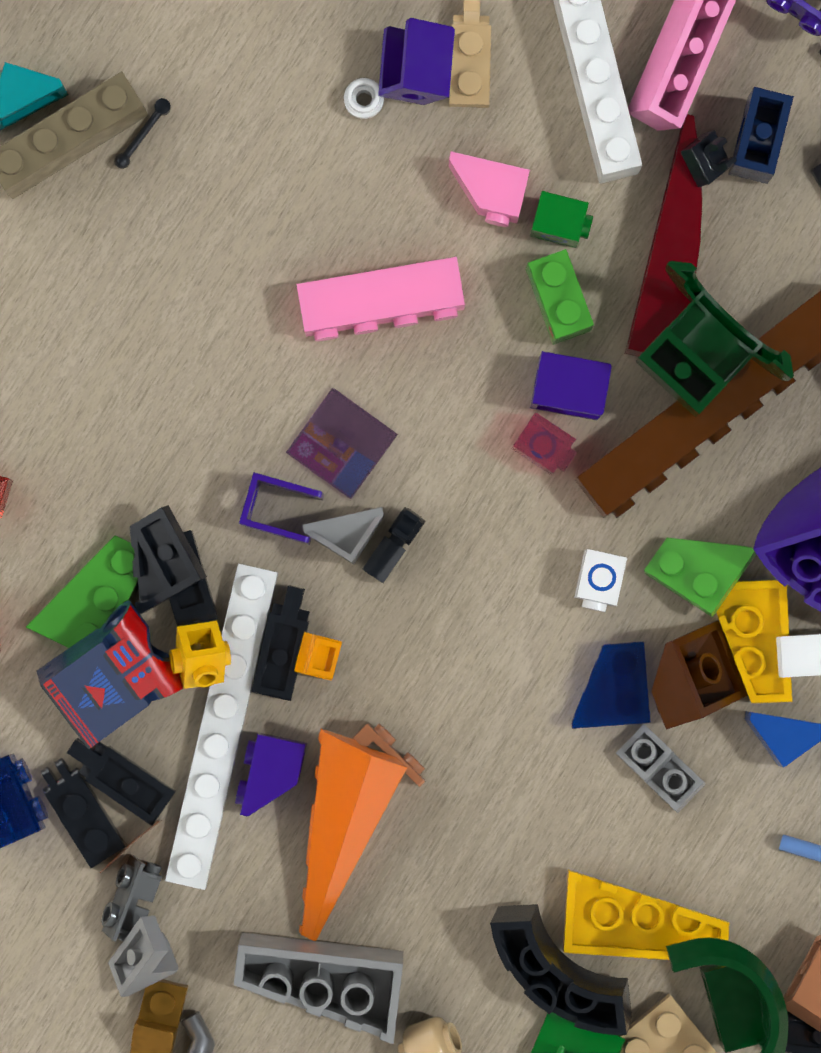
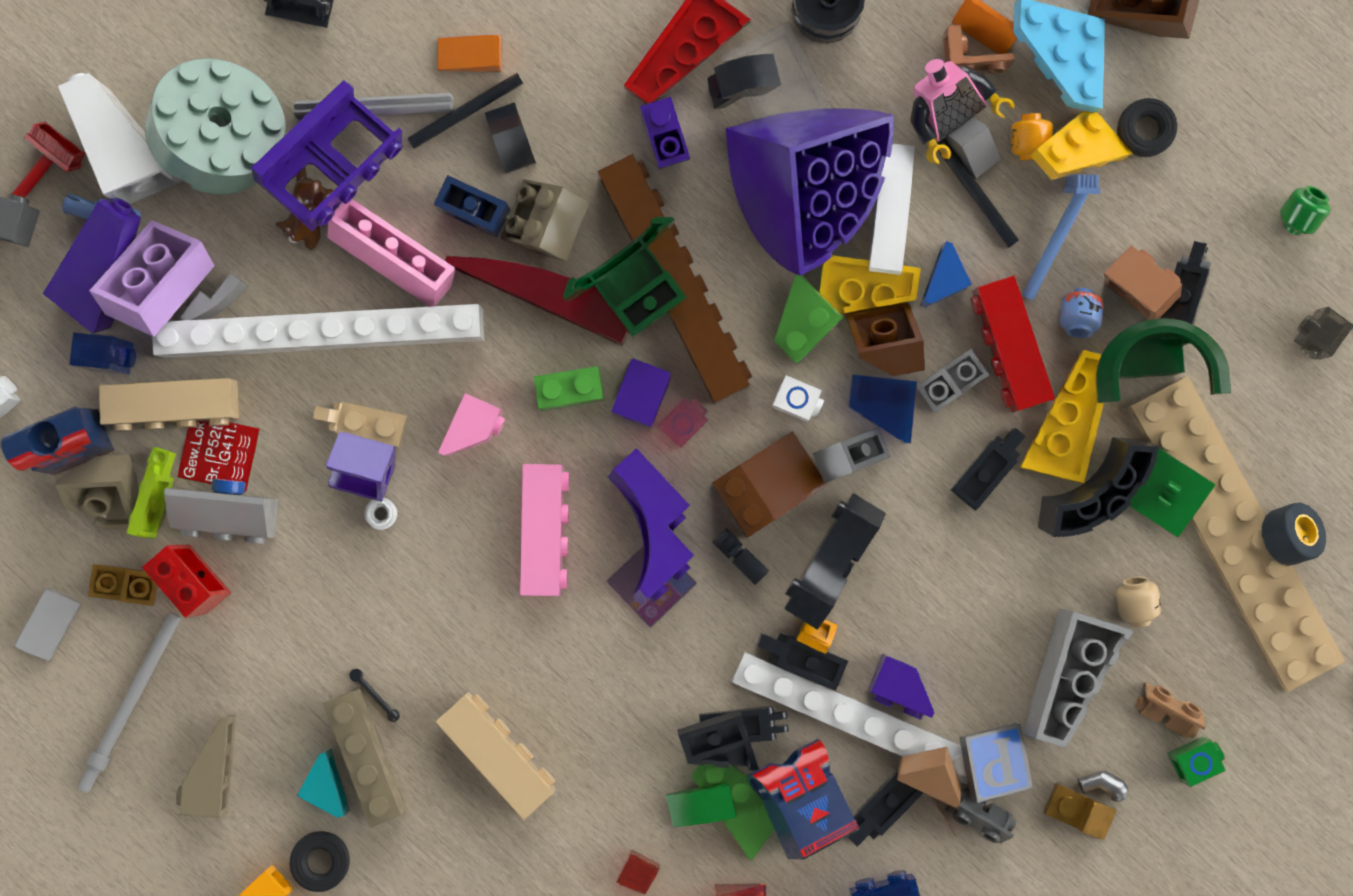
camera: 80 degrees left, 0 degrees up
(81, 553) = (701, 805): none -> green slope
(82, 814) = (906, 842): black hinge -> none
(98, 292) = (496, 755): none -> tan brick
(142, 958) = (1030, 815): light grey slope -> none
(171, 828) = (932, 774): none -> medium nougat slope
(199, 905) = (996, 762): none -> tile
(200, 655) = (801, 726): yellow brick -> none
(250, 501) = (700, 670): dark purple piece -> none
(346, 534) = (725, 592): light grey slope -> none
(348, 804) = (938, 629): orange wedge -> none
(384, 740) = (897, 614): nougat bracket -> none
(405, 658) = (826, 573): none -> black brick
(432, 431) = (656, 509): none -> dark purple arch
(489, 564) = (769, 484): none -> reddish brown slope
(544, 658) = (851, 455): none -> dark grey slope
(557, 831) = (988, 469): none -> black hinge
(561, 220) = (508, 375): green brick -> none
(707, 158) = (482, 252): black tile -> none
(719, 833) = (1012, 344): none -> red brick
(762, 228) = (545, 219): none -> dark tan slope
(774, 912) = (1081, 313): none -> medium blue head

